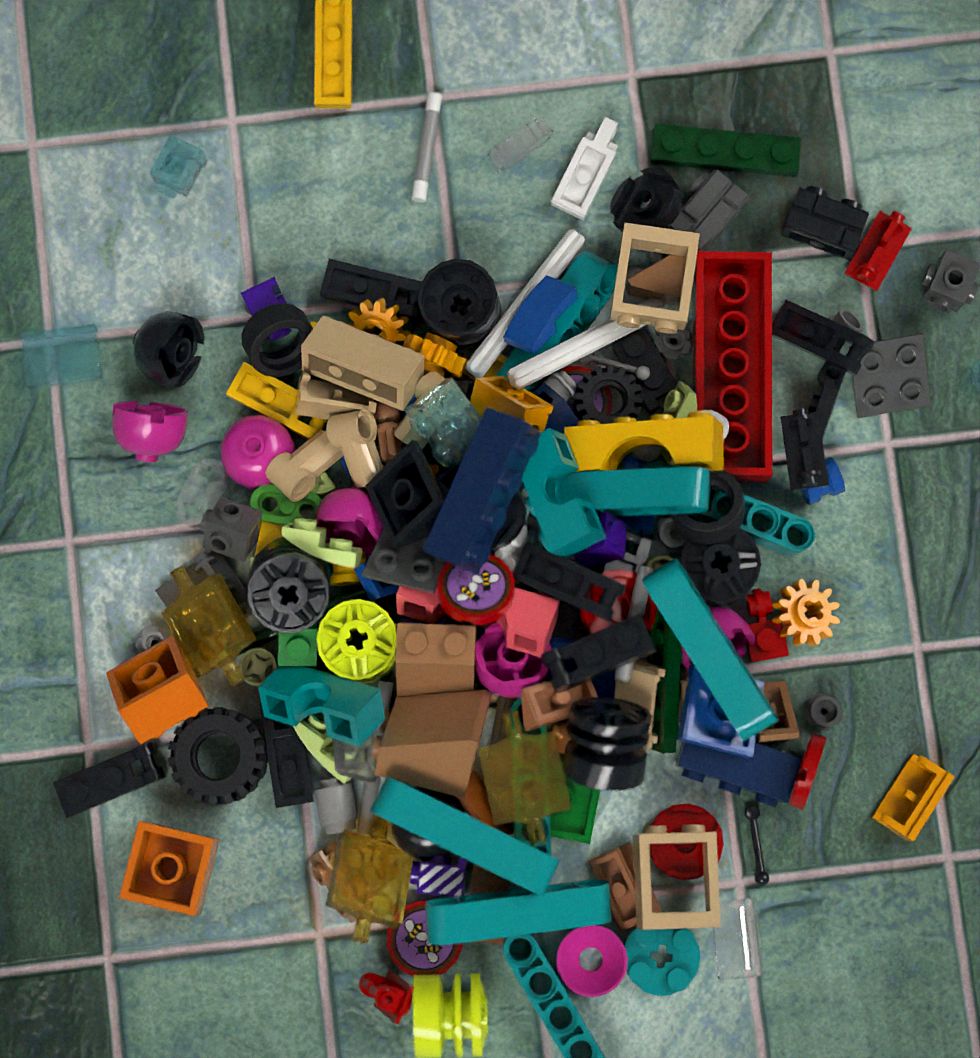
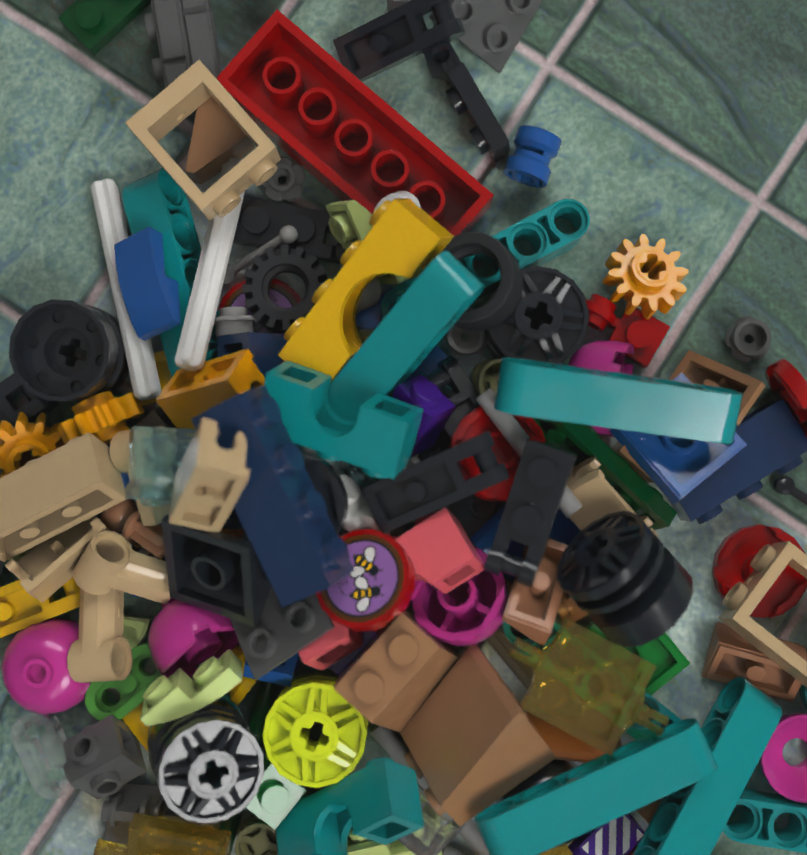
camera: 50 degrees left, 5 degrees up
(460, 446) = (208, 480): none -> tan hinge
(587, 171) = (48, 121): white hinge -> none
(653, 186) = (119, 69): black plate -> none
(804, 450) = (494, 144): black hinge -> none

